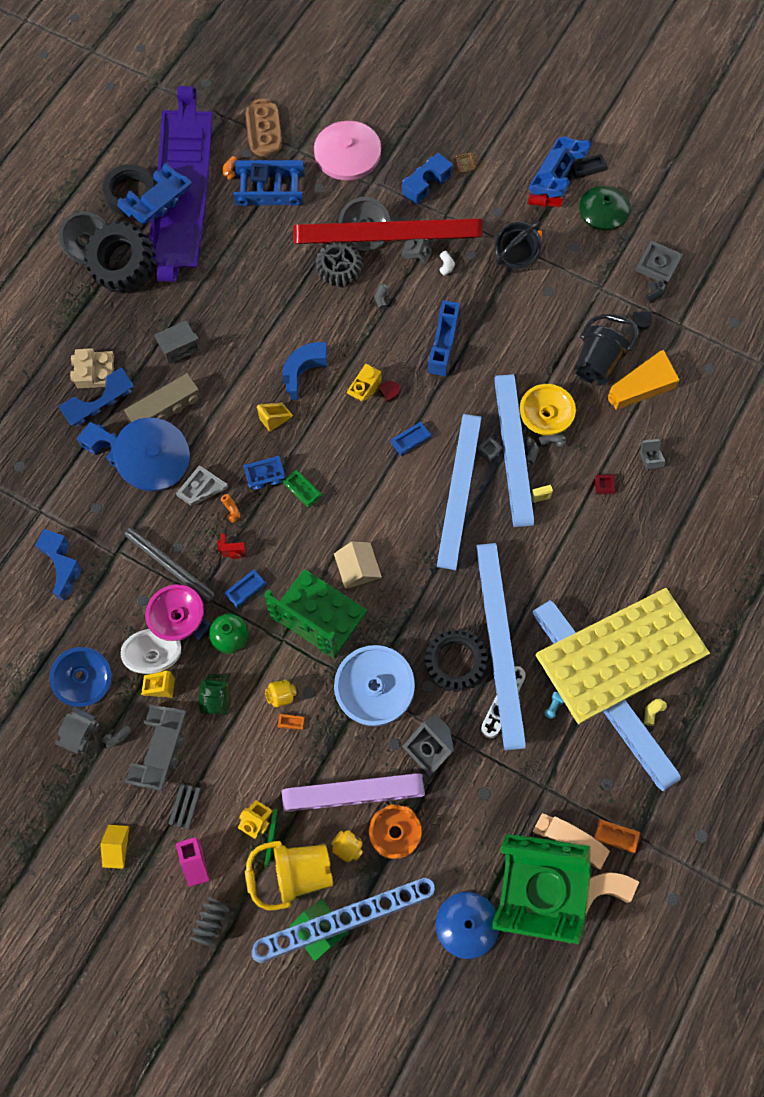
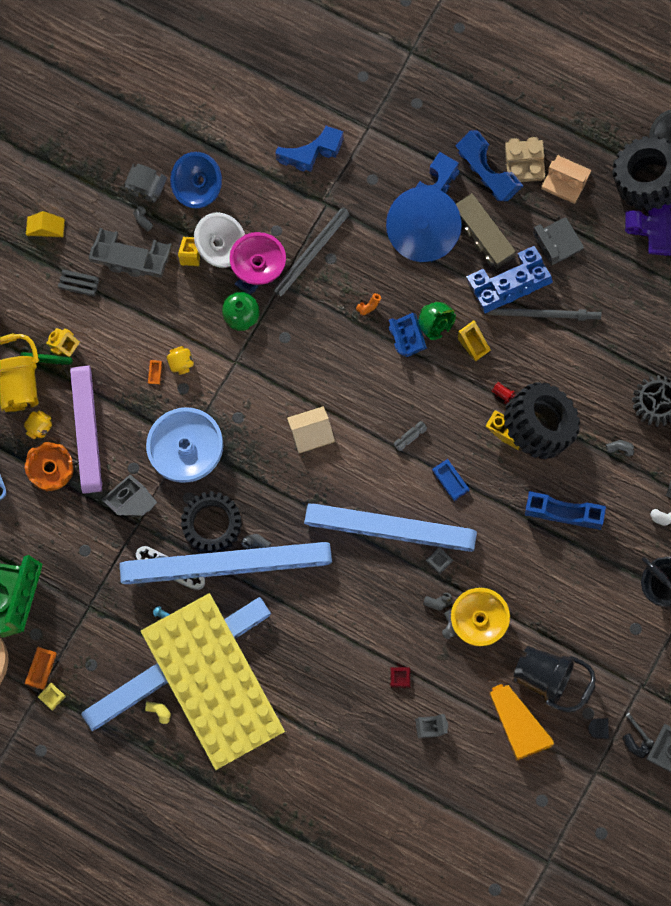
camera: 95 degrees right, 5 degrees up
(116, 333) = (566, 179): none -> light nougat bracket
(192, 861) = (28, 291): dark pink slope -> none
(200, 487) = (392, 274): light grey wing -> none
(214, 695) = (178, 301): dark green piece -> none
(219, 379) = (511, 284): none -> blue bracket
(231, 550) = (323, 310): red bracket -> none
(245, 589) = (286, 324): blue tile -> none
(249, 446) = (435, 319): none -> green cylinder
(252, 325) = (581, 314): none -> dark grey bar
(300, 360) = (529, 359): blue arch -> none
(302, 489) = (391, 373): green plate -> none
(317, 613) = (255, 387): green bracket -> none
(330, 385) = (503, 392): none -> red axle
(360, 348) = (529, 432): none -> black tyre
(367, 473) = (410, 436): none -> dark grey axle
(389, 390) = (506, 457): dark red tile -> none
(472, 617) = (255, 540): none -> dark grey arm
(514, 451) = (437, 583): light blue beam -> none
(541, 493) = (386, 610): light yellow tile -> none
(559, 830) = (39, 615): light nougat arch -> none
(645, 824) = (51, 696): none -> light yellow tile
(652, 281) = (649, 742): none -> dark grey hinge

